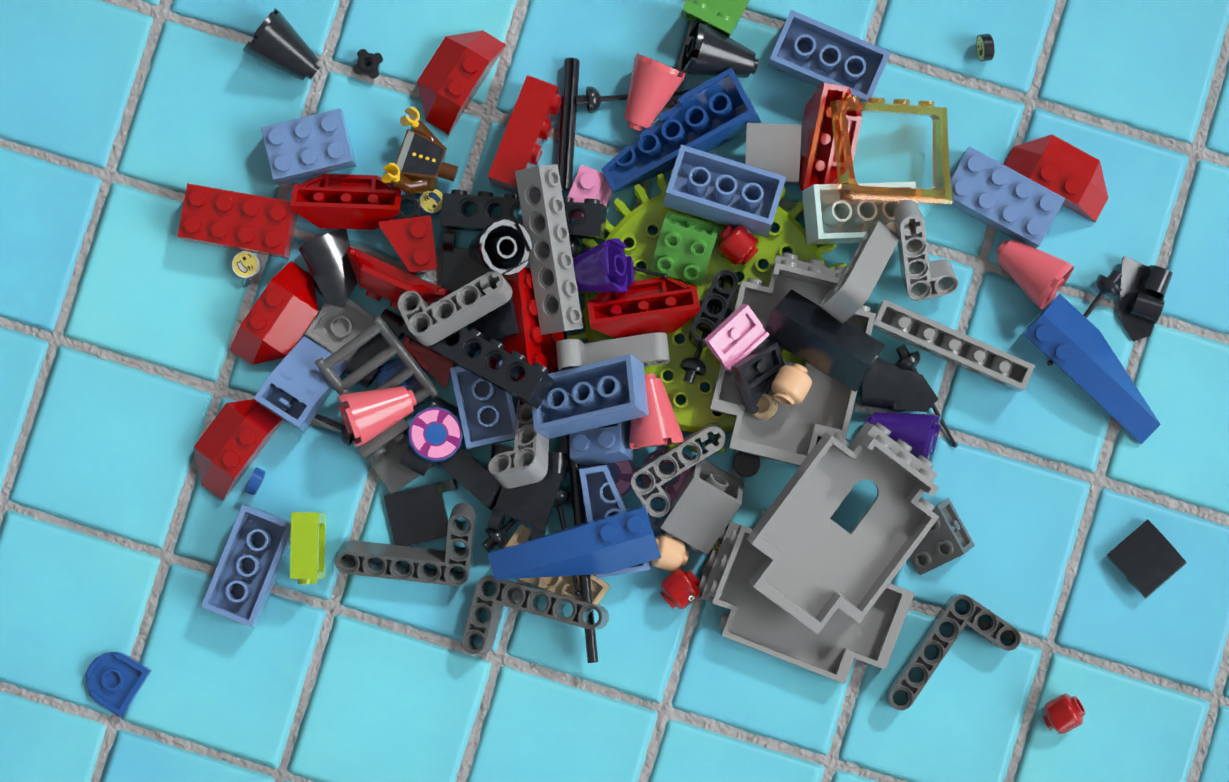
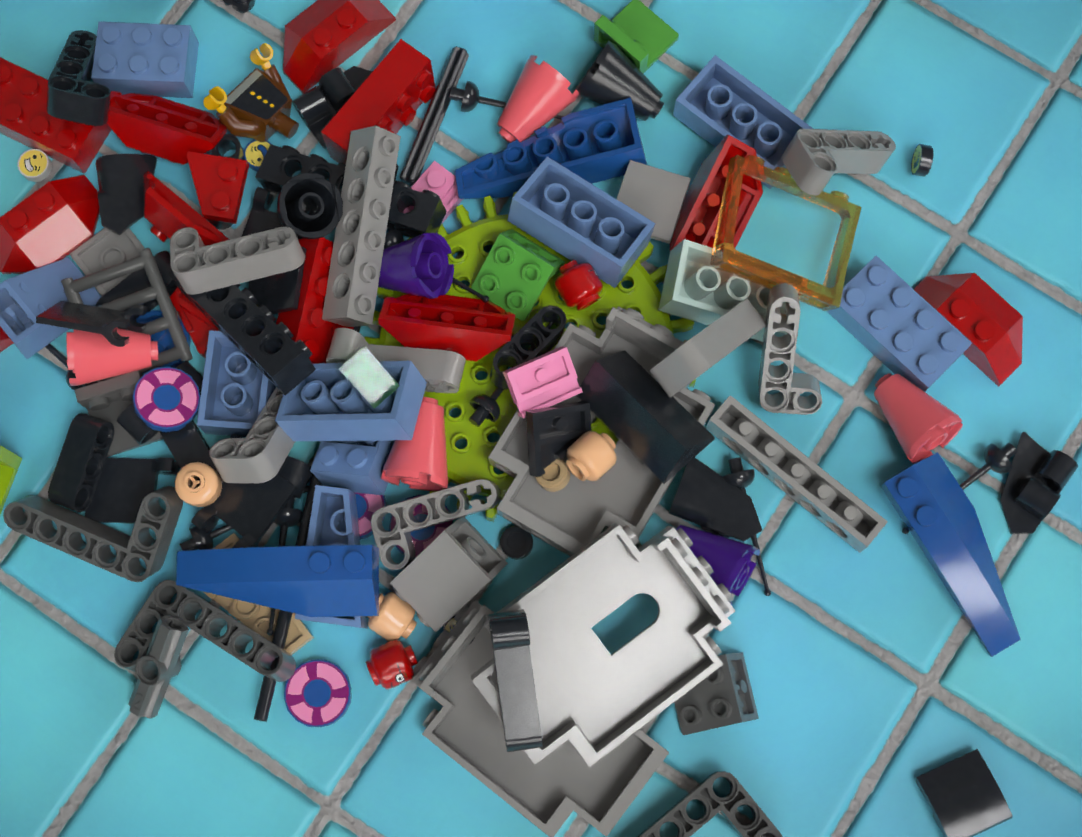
camera: 15 degrees right, 10 degrees down
(267, 207) = (69, 85): none -> black beam
(358, 390) = (94, 320): none -> black flag
(380, 503) = (81, 462): none -> black beam
(477, 489) = (209, 483): none -> light nougat head
(480, 137) = (324, 101): none -> black panel
(503, 633) = (158, 666): none -> dark grey piece
(599, 377) = (368, 377): none -> clear green slope
(628, 628) = (318, 693): none -> tile
(778, 556) = (515, 680): none -> beam
(900, 76) = (820, 153): none -> light grey beam

